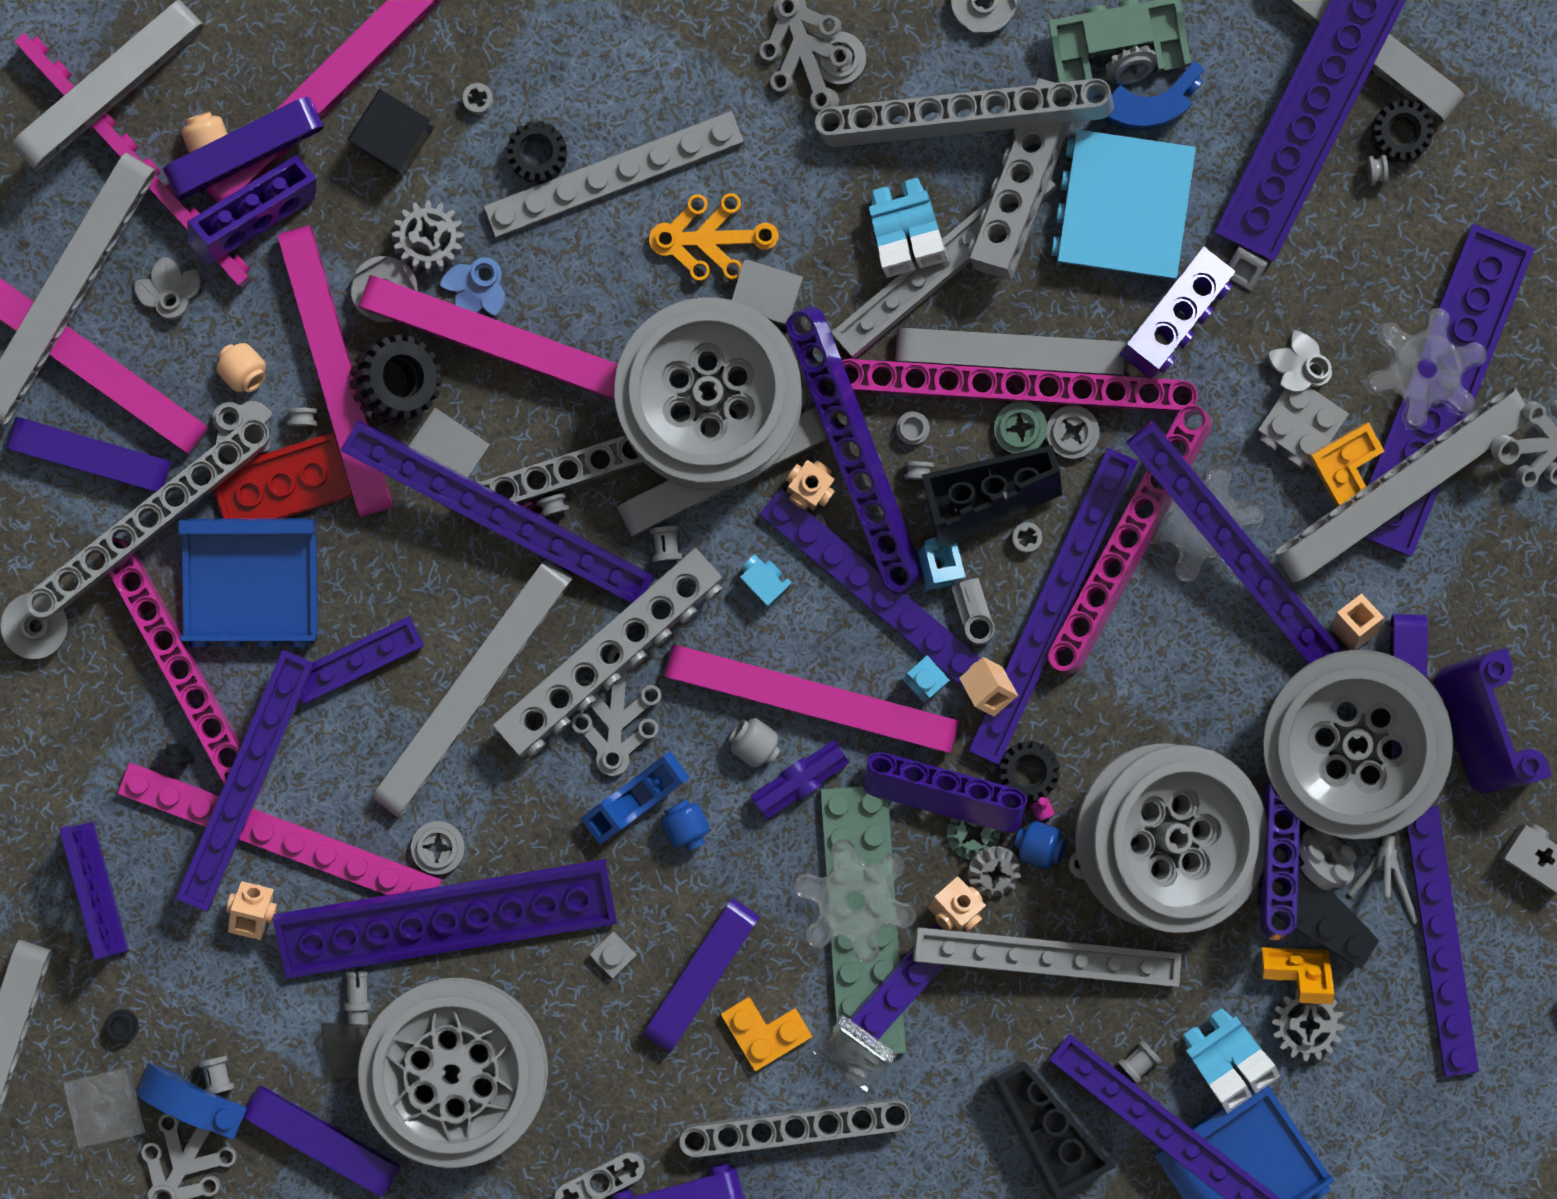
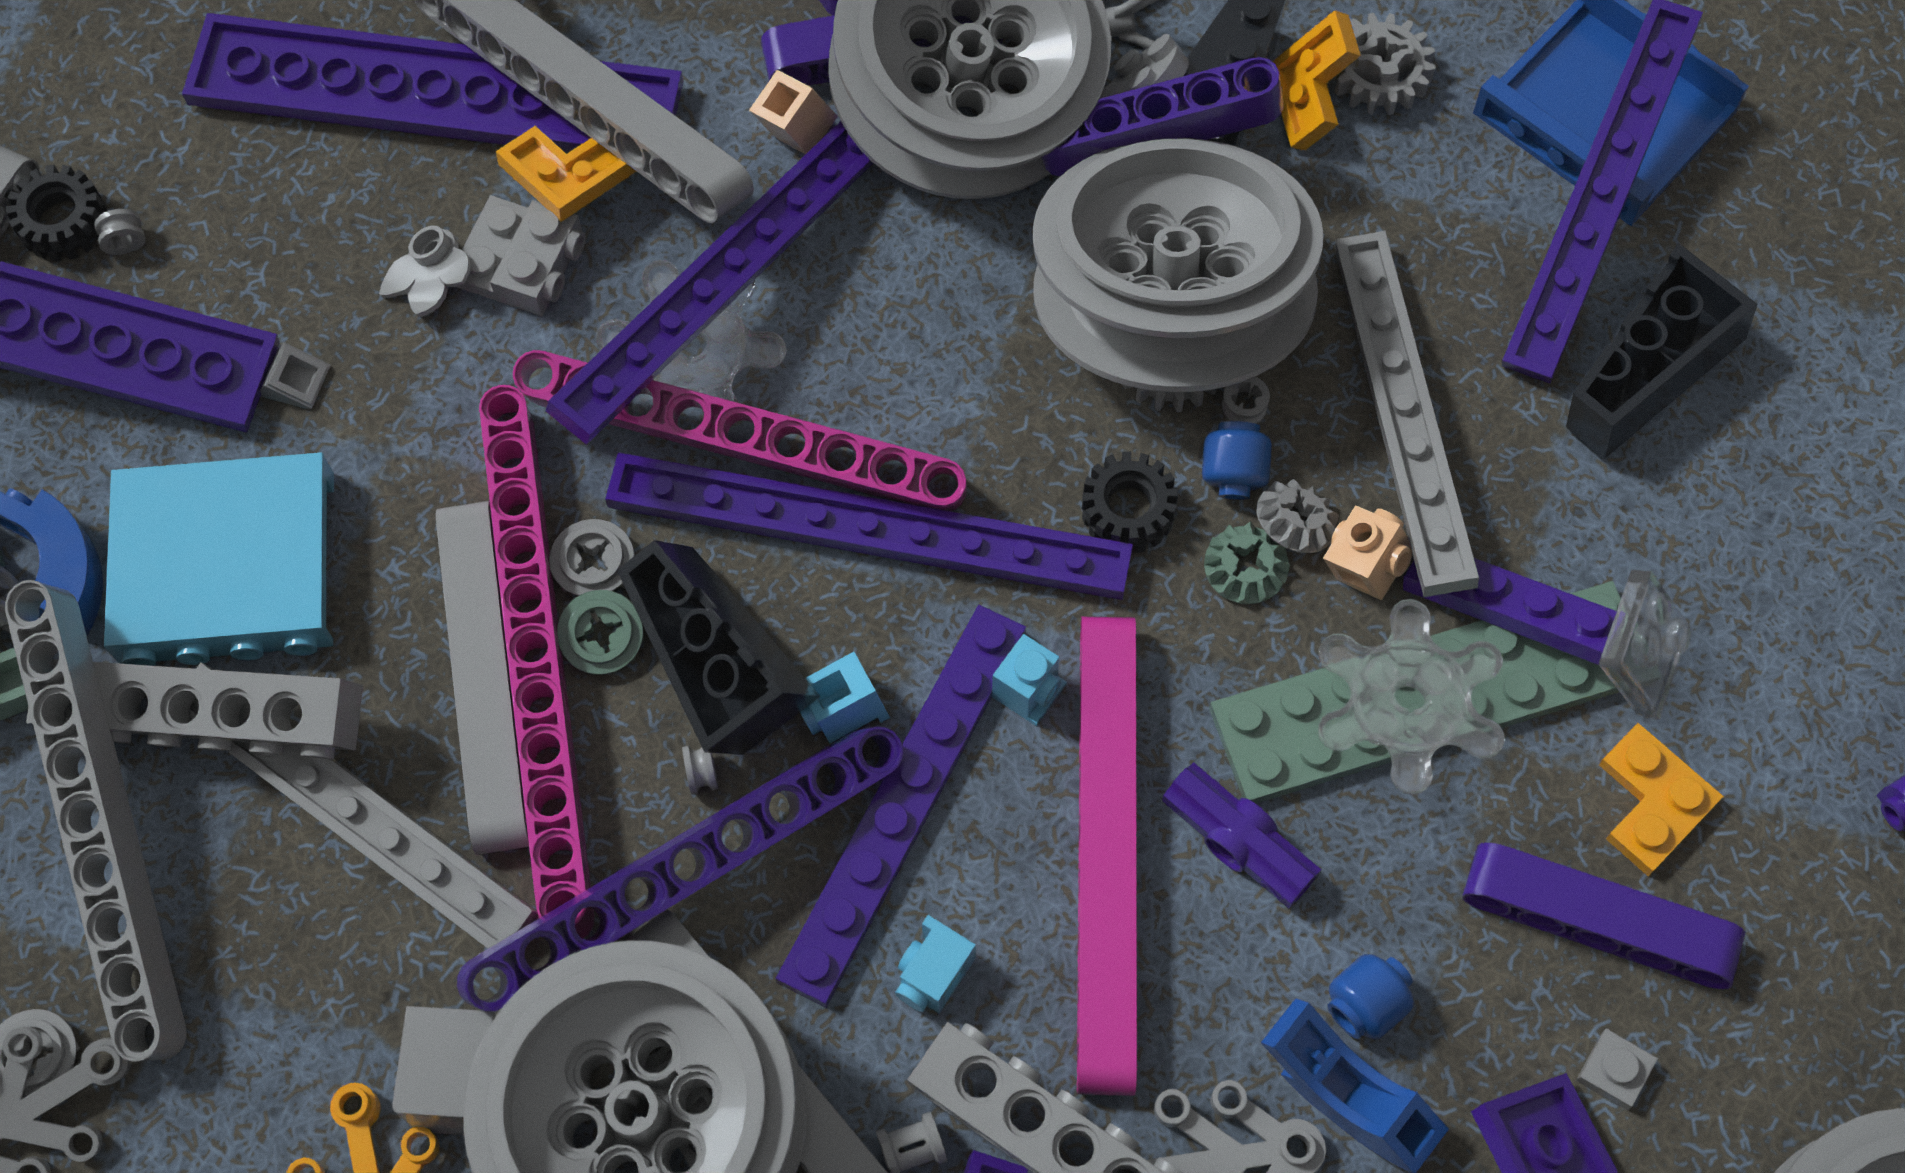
camera: 105 degrees left, 20 degrees down
(754, 743) = (1203, 920): light grey head -> none
(780, 1137) = (1790, 740): light grey beam -> none
(810, 497) = (771, 939): light nougat brick -> none
(902, 218) = (305, 872): medium azure hips -> none
(912, 428) = (633, 795): light grey plate -> none
(944, 792) = (1199, 610): dark purple beam -> none
(972, 609) = (902, 638): light grey piece -> none
(988, 686) = (1016, 578): light nougat brick -> none
(1023, 528) = (781, 601): light grey bush -> none
(1042, 809) = (1183, 470): dark pink hand -> none
(1140, 1061) = (1509, 260): light grey bush -> none
(1204, 271) = (378, 439): brick -> none
(1221, 1051) = (1469, 138): hips -> none
(1403, 373) = (414, 131): clear plate -> none

